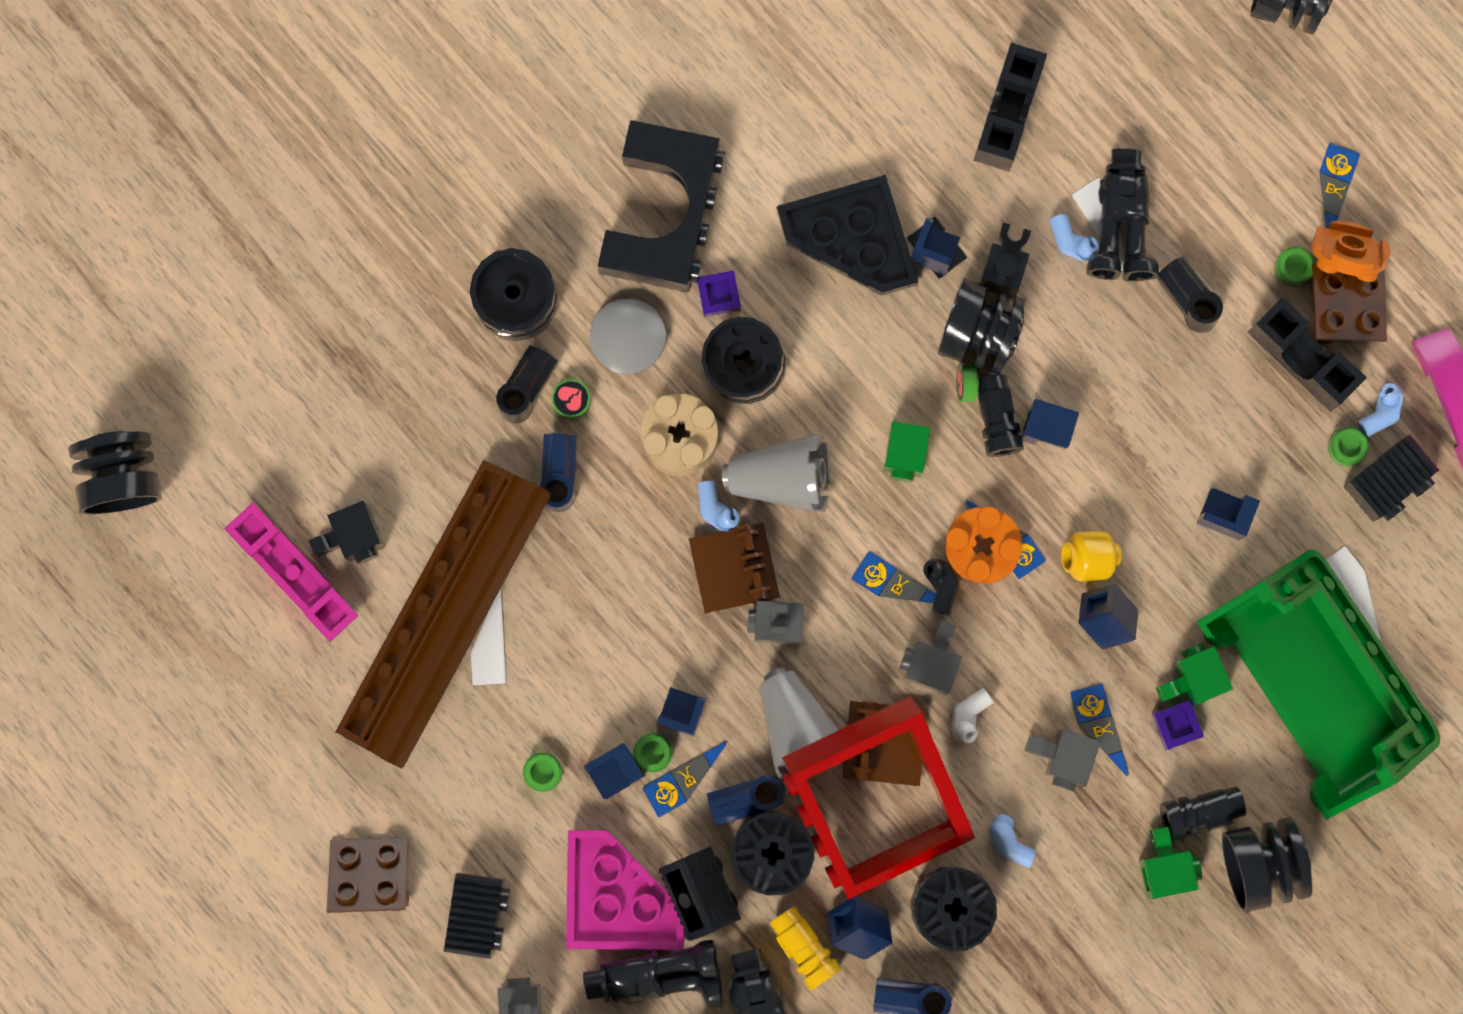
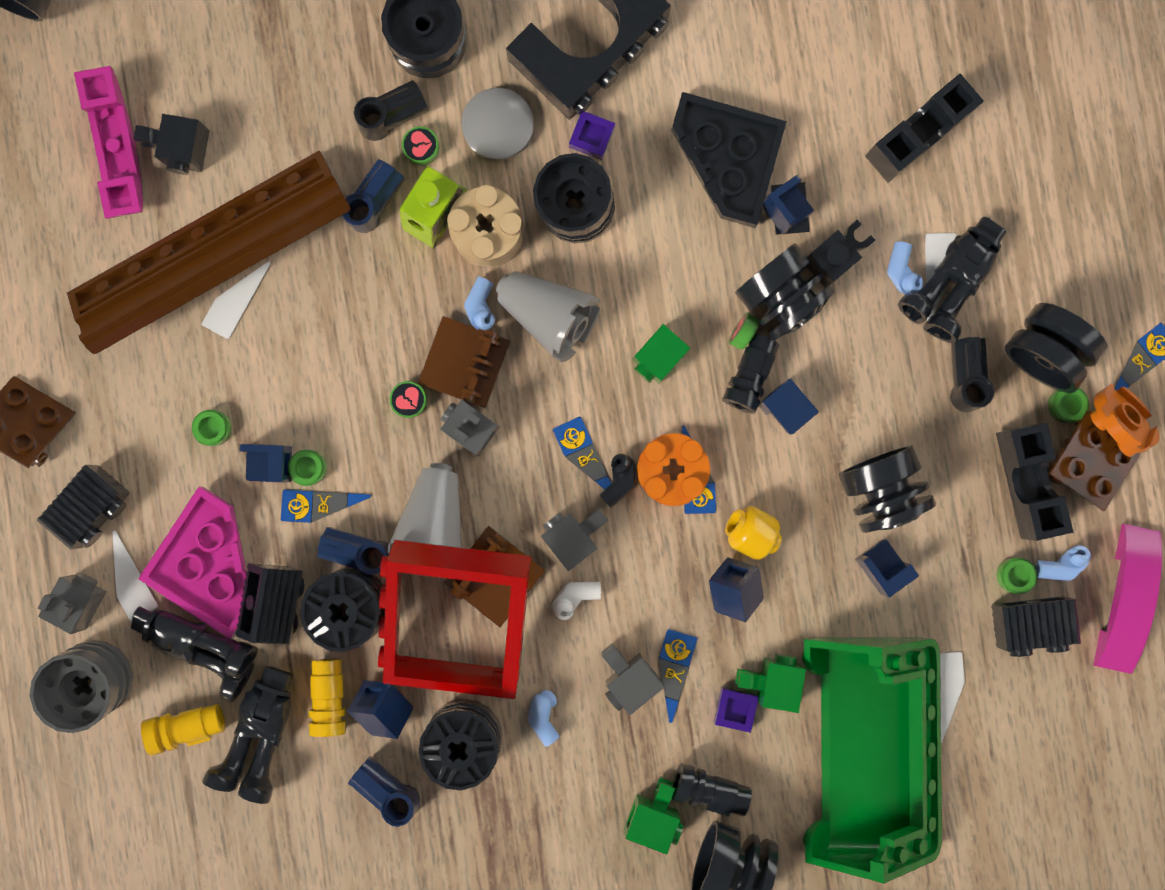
camera: 30 degrees right, 5 degrees up
(558, 964) = (129, 589): none -> white sticker
(619, 447) = (429, 206): none -> lime torso
(682, 711) = (348, 451): dark blue panel -> none
(705, 633) = (408, 399): none -> tile
(1183, 442) = (887, 489): none -> black wheel
(1248, 226) = (1056, 347): none -> black wheel

